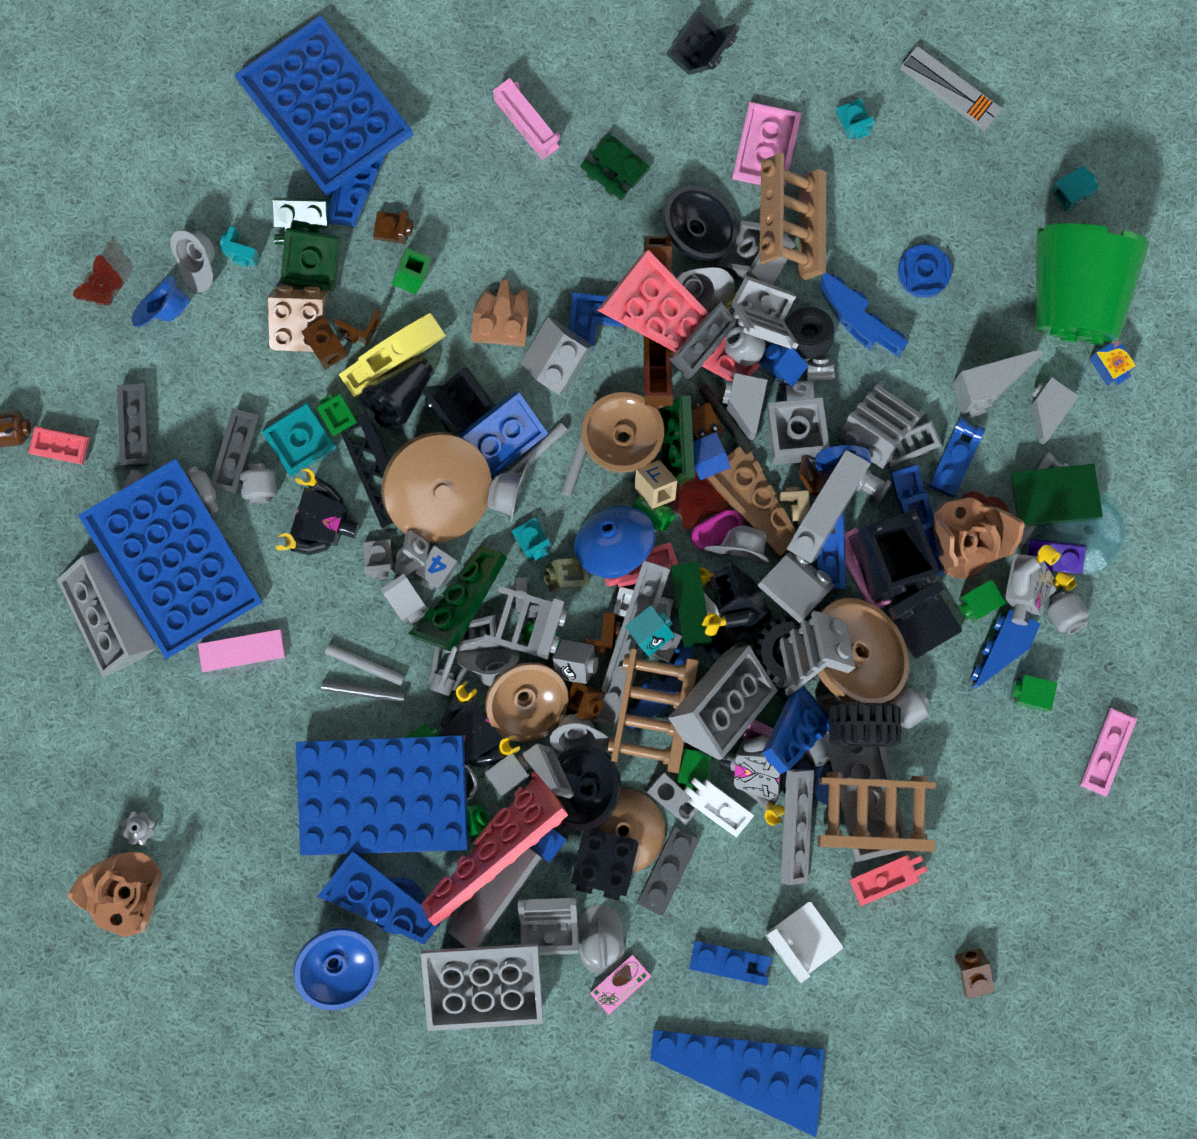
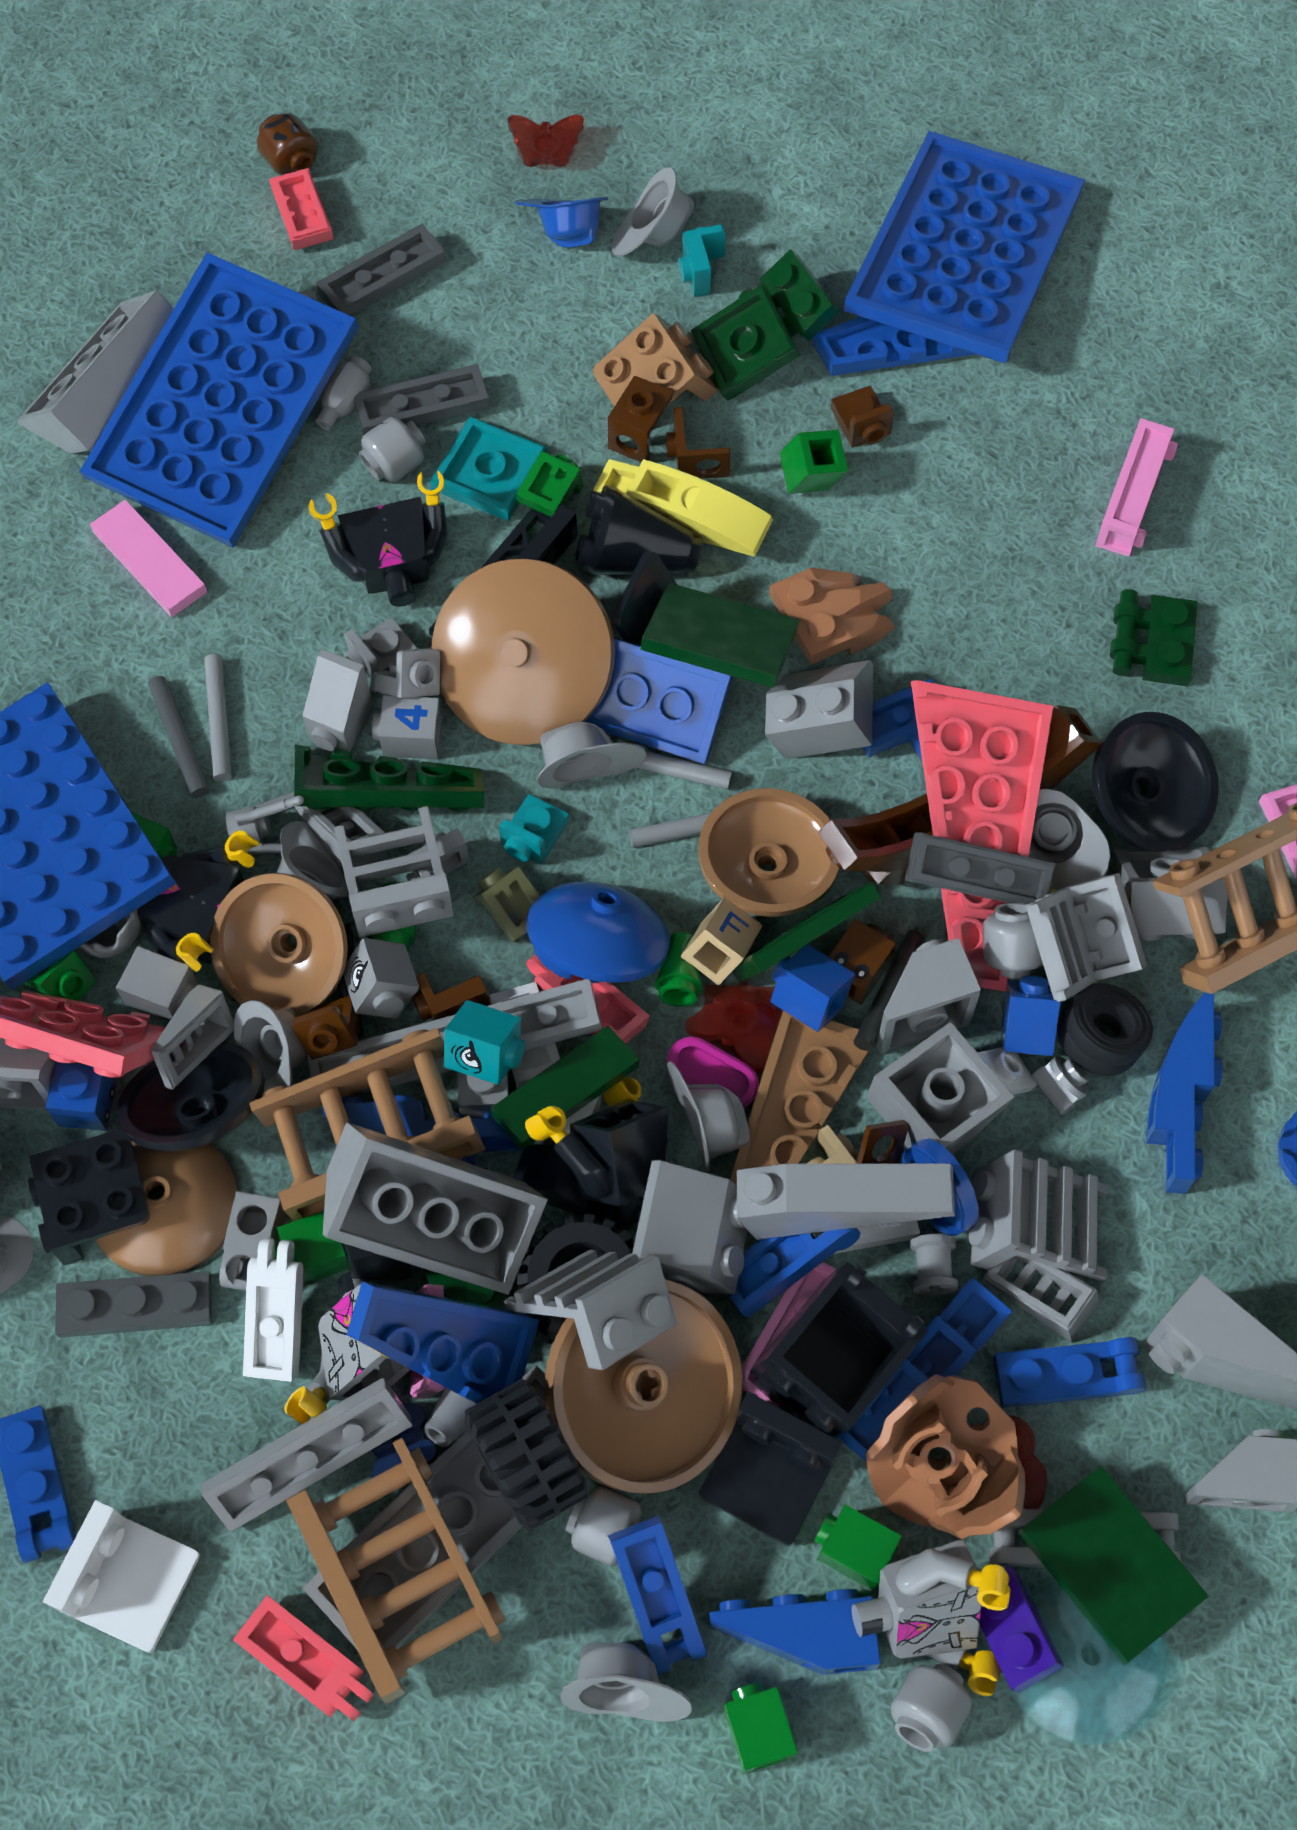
camera: 60 degrees right, 15 degrees down
(491, 383) = (720, 635): none -> dark green tile
(953, 703) = (657, 1593): none -> blue plate
(979, 740) = (622, 1682): none -> light grey piece

